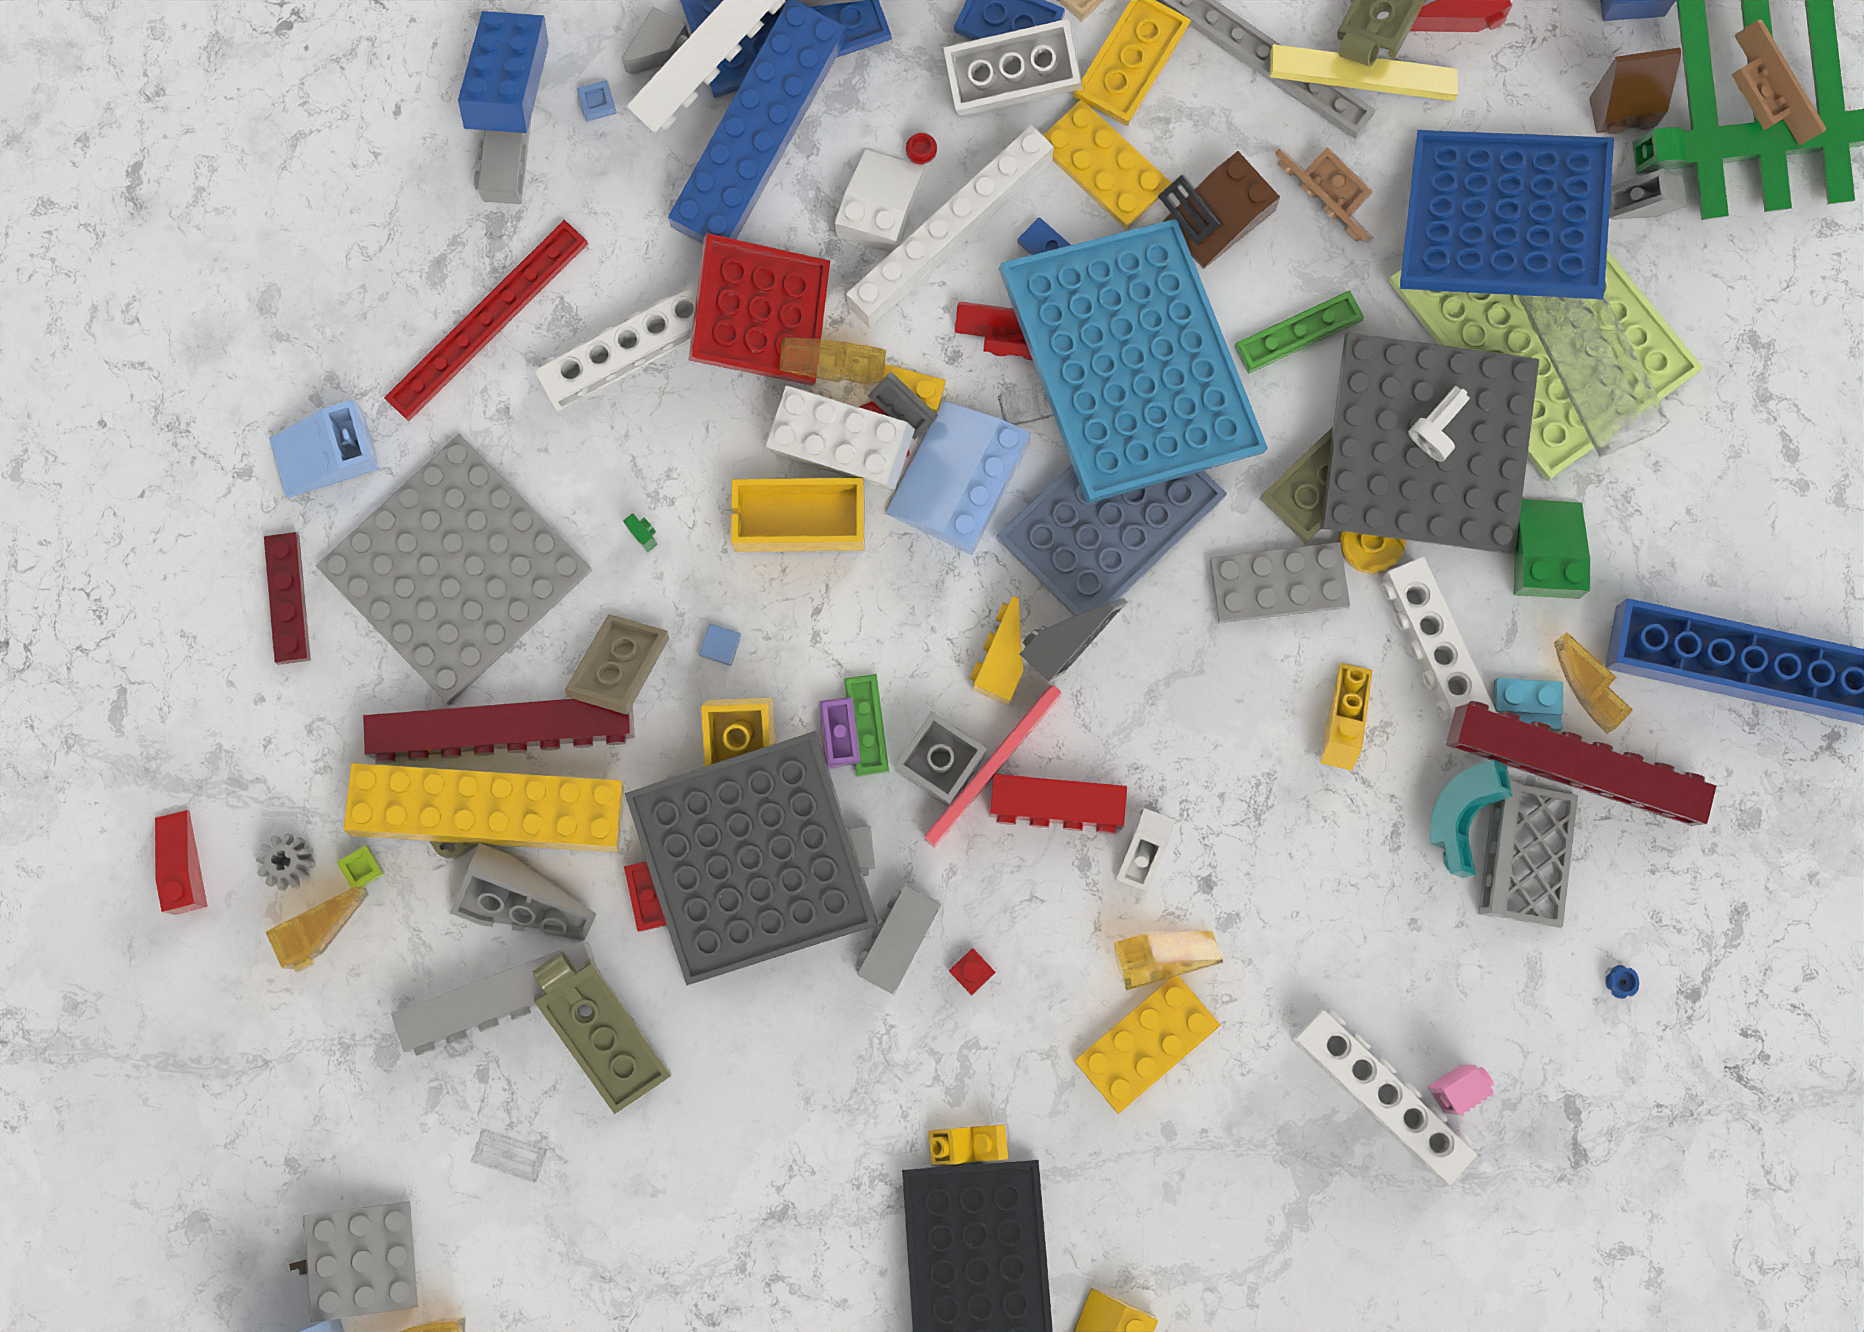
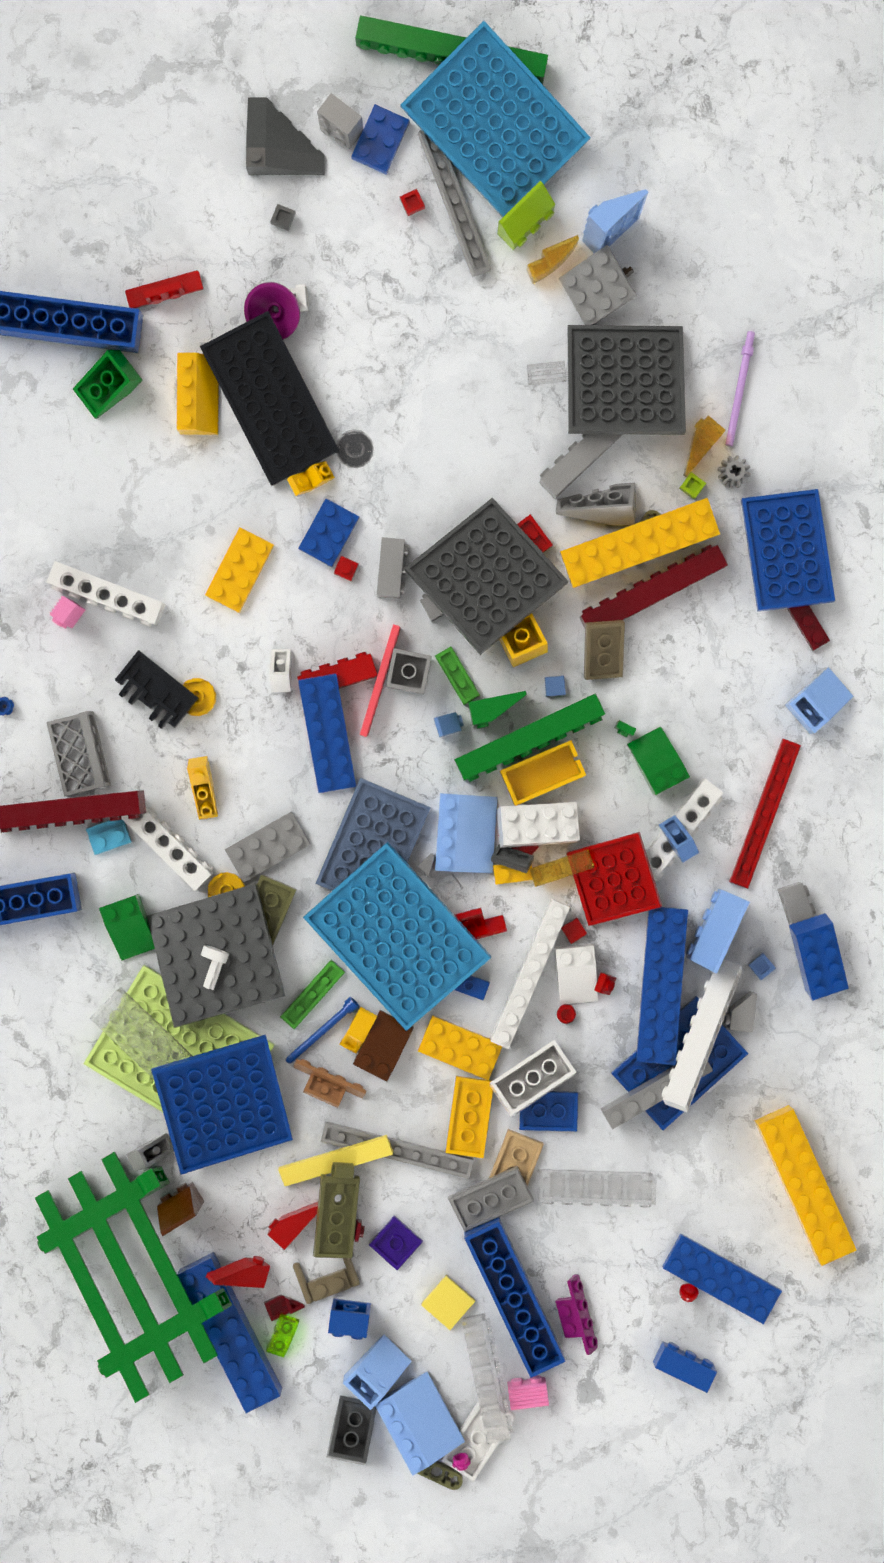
camera: 155 degrees right, 10 degrees up
(174, 1048) = (747, 352): none -> lavender bar
(177, 865) = (791, 447): red slope -> none
(260, 701) = (787, 550): none -> blue plate
(385, 1083) = (626, 380): none -> dark grey plate
(454, 568) = (718, 667): light grey plate -> none
(608, 1040) = (520, 450): olive hinge -> none
(612, 461) = (658, 761): none -> green slope
(632, 326) = (679, 838): none -> medium blue slope
(635, 168) = (717, 930): none -> light blue slope
(794, 576) = (530, 736): none -> green brick
(835, 645) = (488, 709): none -> green slope
(839, 732) = (469, 664): medium lavender slope -> none
(842, 165) = (605, 983): none -> red plate
(854, 264) = (573, 930): none -> red tile
(874, 1164) = (355, 448): none -> clear tile
(914, 650) = (448, 724): none -> medium blue slope
(975, 1042) = (328, 532): none -> blue plate
(1003, 665) = (397, 737): yellow slope -> none
(1039, 452) = (426, 864): none -> light grey slope
(1057, 647) = (370, 760): dark grey slope -> none
(1112, 719) = (327, 733): none -> blue plate
(1164, 955) = (247, 618): clear yellow slope -> none
(1201, 203) = (397, 1044): black tile -> none
(1248, 248) = (358, 1030): none -> yellow slope
(1248, 289) = (349, 1007): none -> blue piece
(1299, 865) = (205, 693): none -> yellow tile
(1359, 904) = (156, 687): none -> black hinge
(1457, 807) = (125, 759): teal arch -> none
(1591, 684) = (79, 859): clear yellow slope -> none
(1773, 87) = (103, 1239): medium nougat bracket -> none

